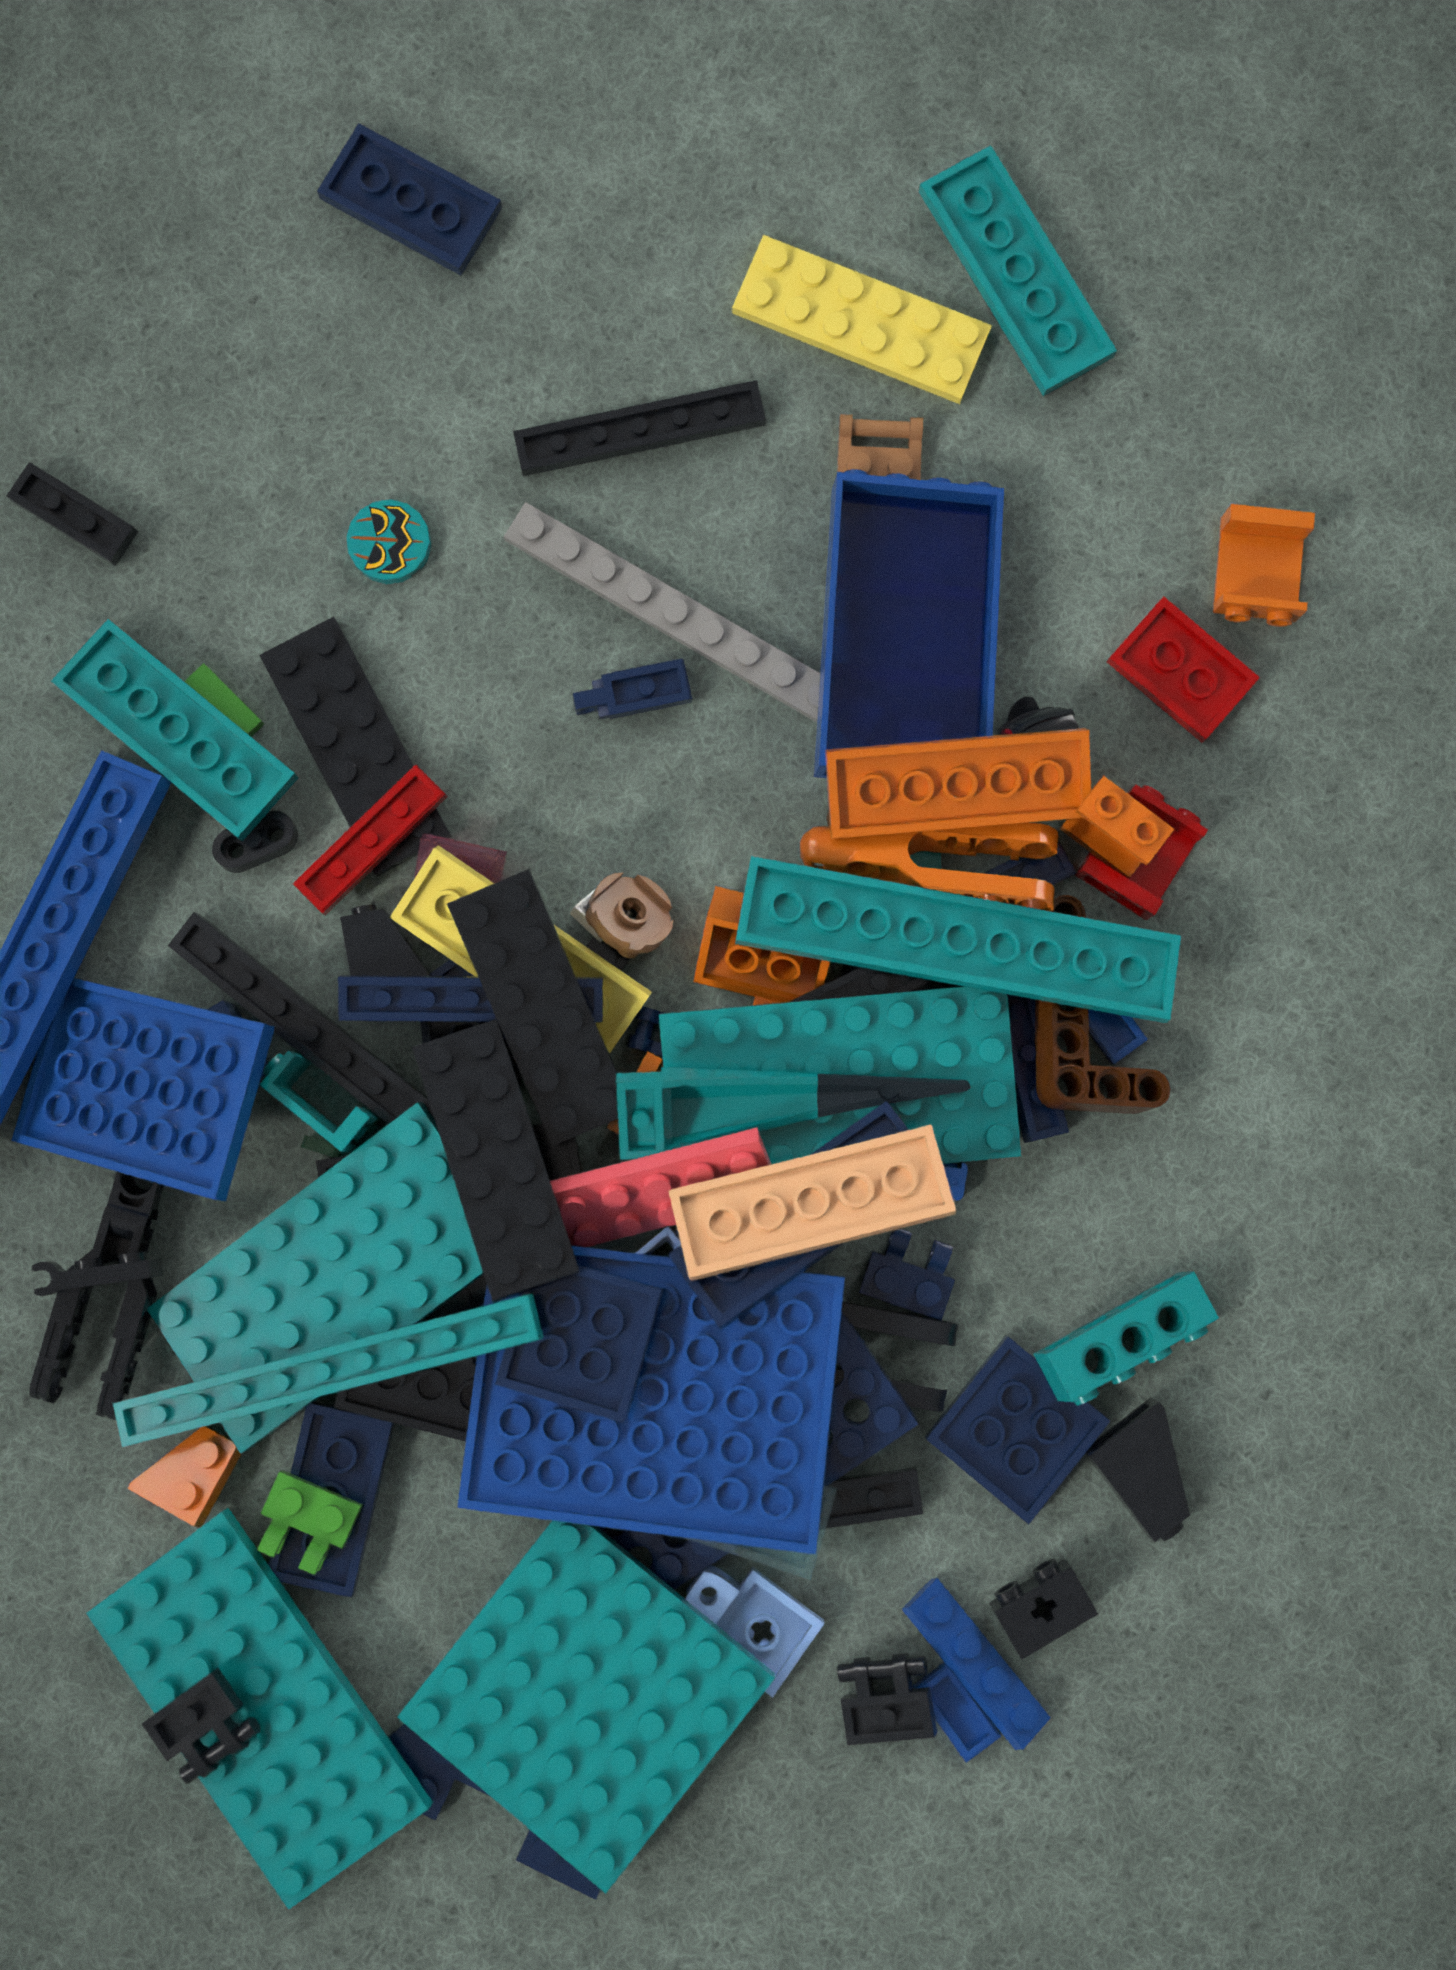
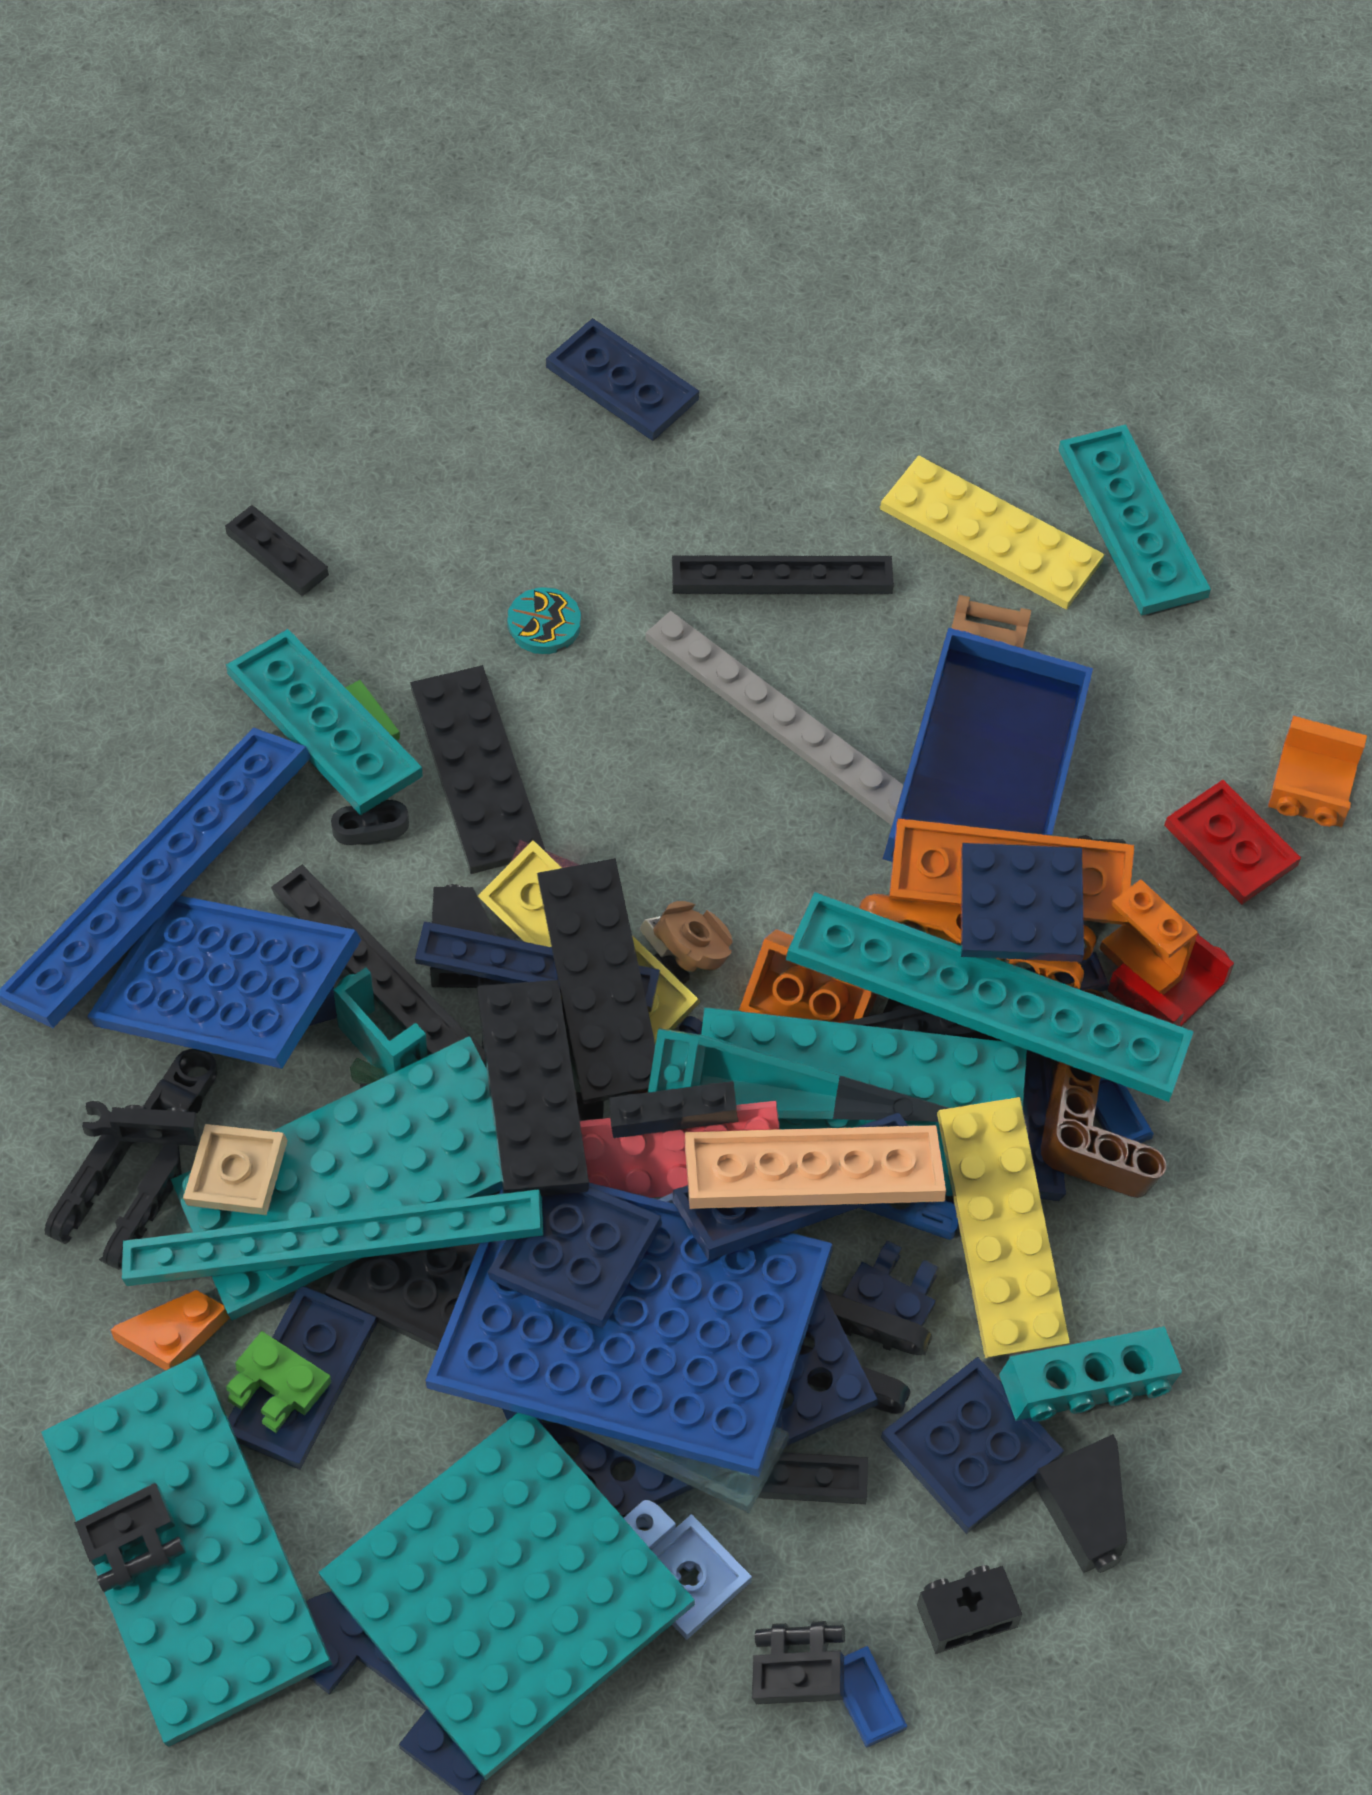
camera: 10 degrees right, 25 degrees down
(208, 1303) = (235, 1169): none -> tan plate
(370, 840) = (474, 835): red tile -> none
(636, 691) = (735, 769): dark blue hinge -> none
(650, 1163) = (673, 1109): none -> black plate
(976, 1664) = (894, 1652): blue plate -> none
(978, 827) = (1022, 902): none -> dark blue plate
(1012, 1193) = (1002, 1227): none -> light yellow plate

